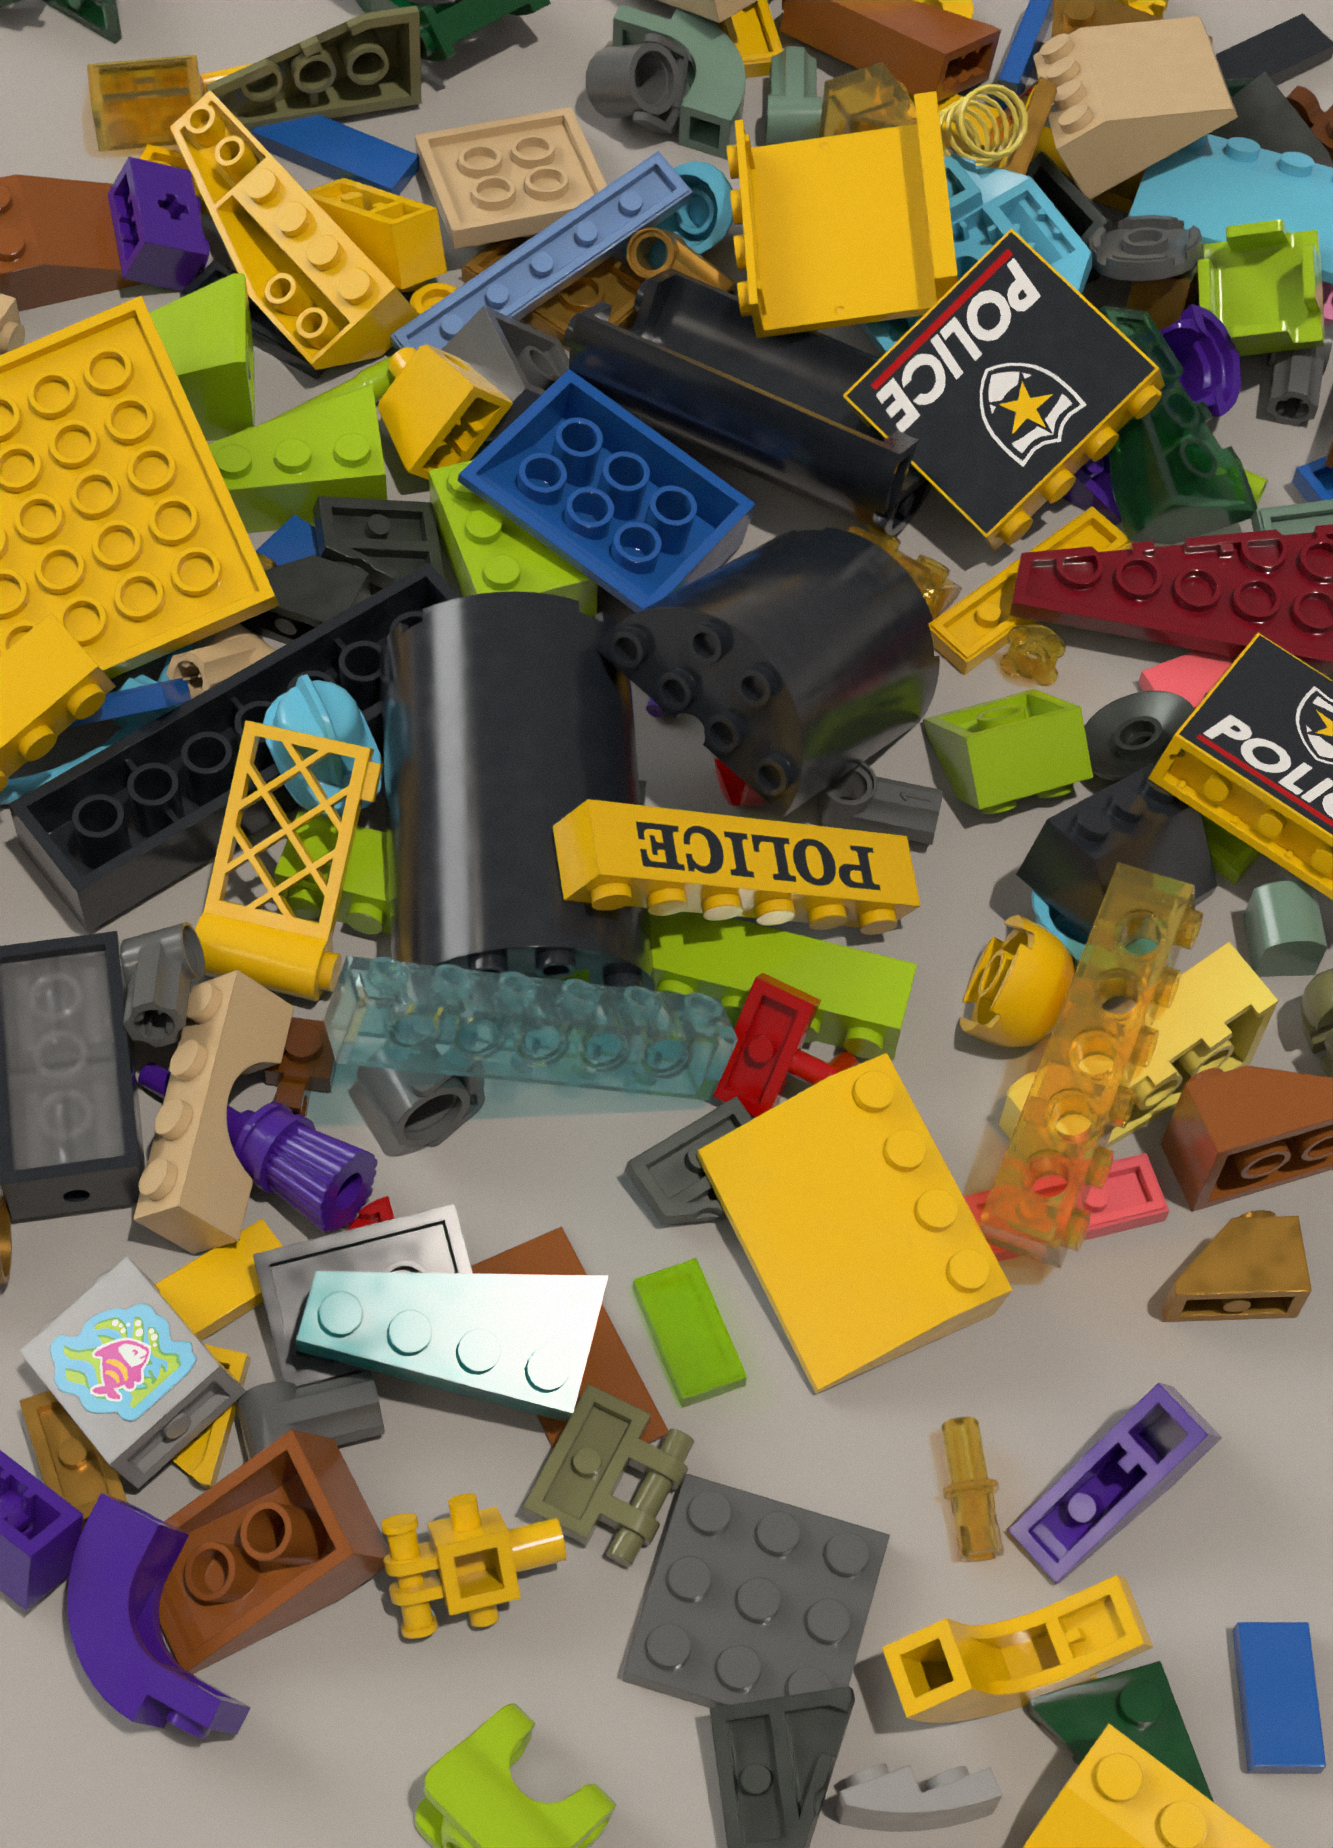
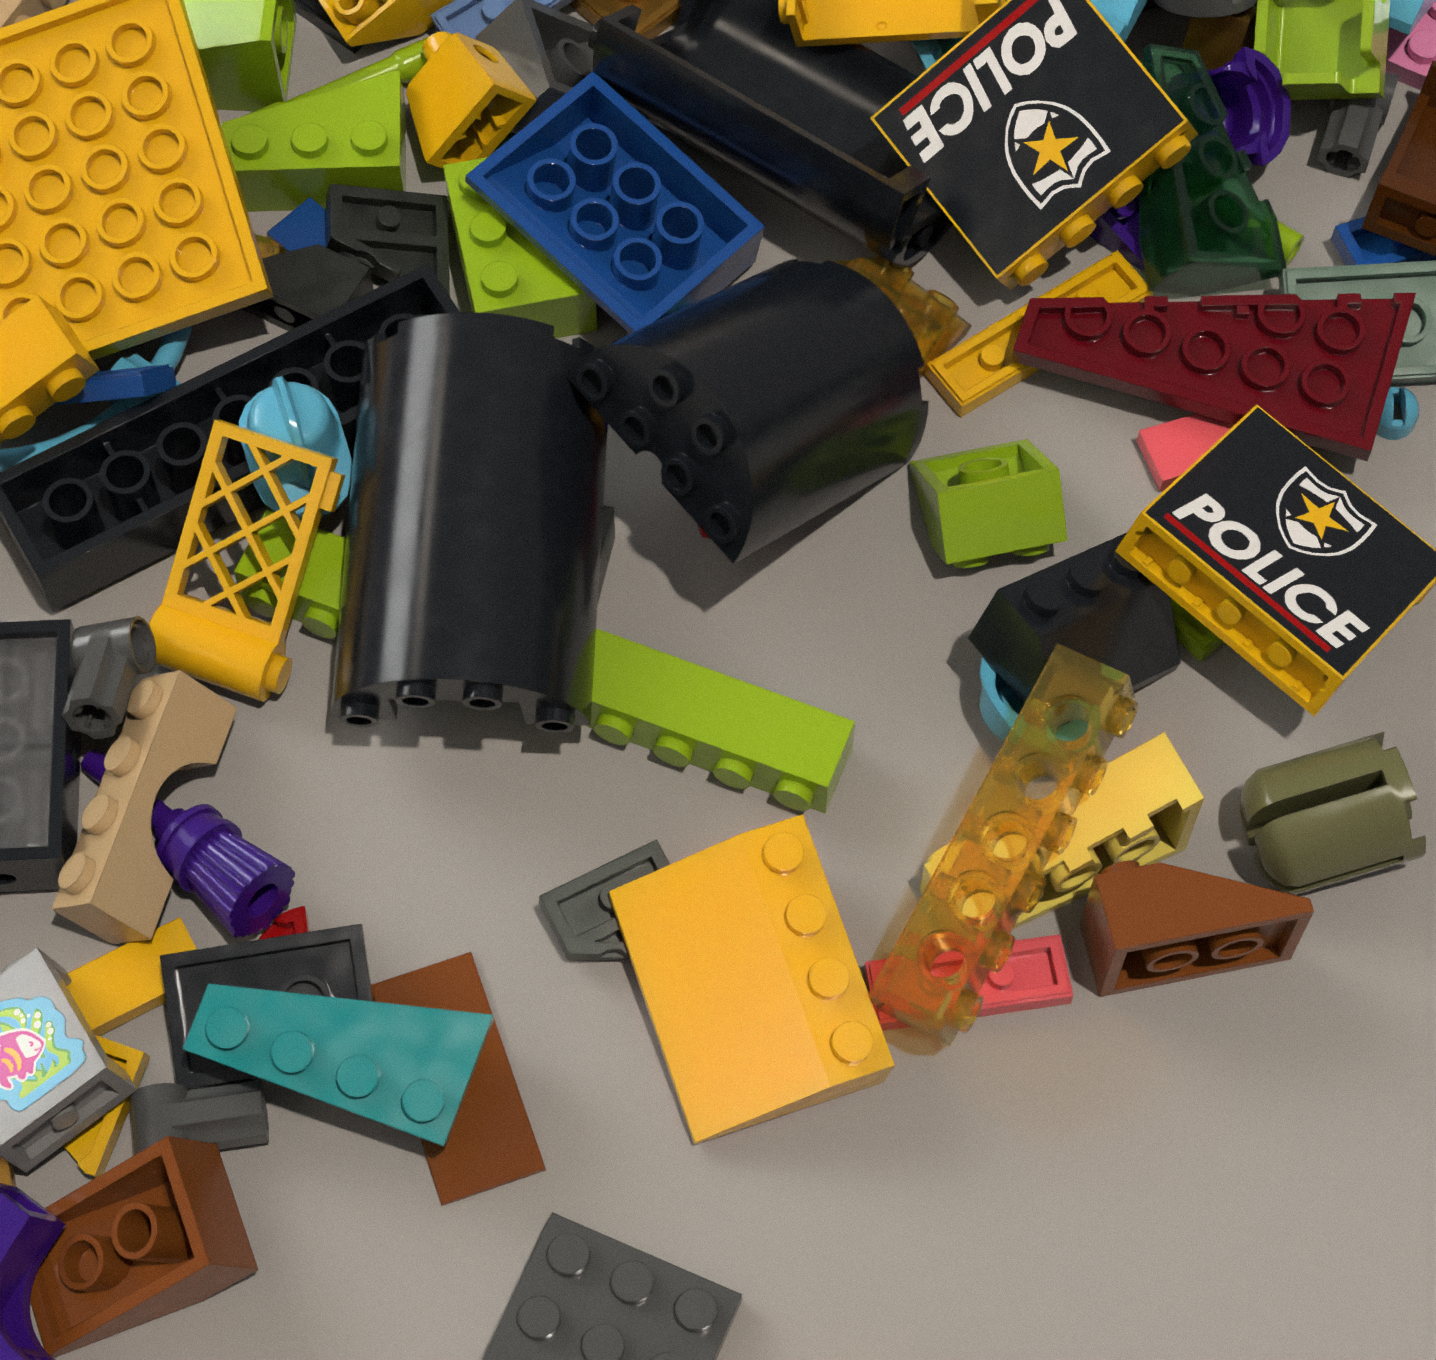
camera: 10 degrees right, 5 degrees up
(225, 656) = (203, 350): tan piece -> none
(305, 1065) = (244, 765): reddish brown plate -> none
(421, 1105) = (346, 804): dark grey piece -> none
(472, 1562) = (323, 1279): yellow piece -> none
(527, 1029) = (451, 758): clear light blue brick -> none
(589, 1464) = (459, 1195): olive plate -> none
(689, 1332) = (579, 1071): clear neon green tile -> none
(734, 867) = (679, 611): yellow brick -> none
(770, 1046) = (695, 791): red plate -> none
(880, 805) = (851, 552): dark grey piece -> none
(971, 1492) = (828, 1258): clear yellow axle -> none
(1018, 986) = (953, 751): yellow cylinder -> none
(1038, 641) = (1030, 403): clear yellow plate -> none
(1115, 1481) = (973, 1263): slope -> none
(1134, 732) = (1113, 493): pearl dark grey dish -> none
(1245, 1273) = (1135, 1066): pearl gold slope -> none
(1284, 929) = (1238, 716): sand green piece -> none

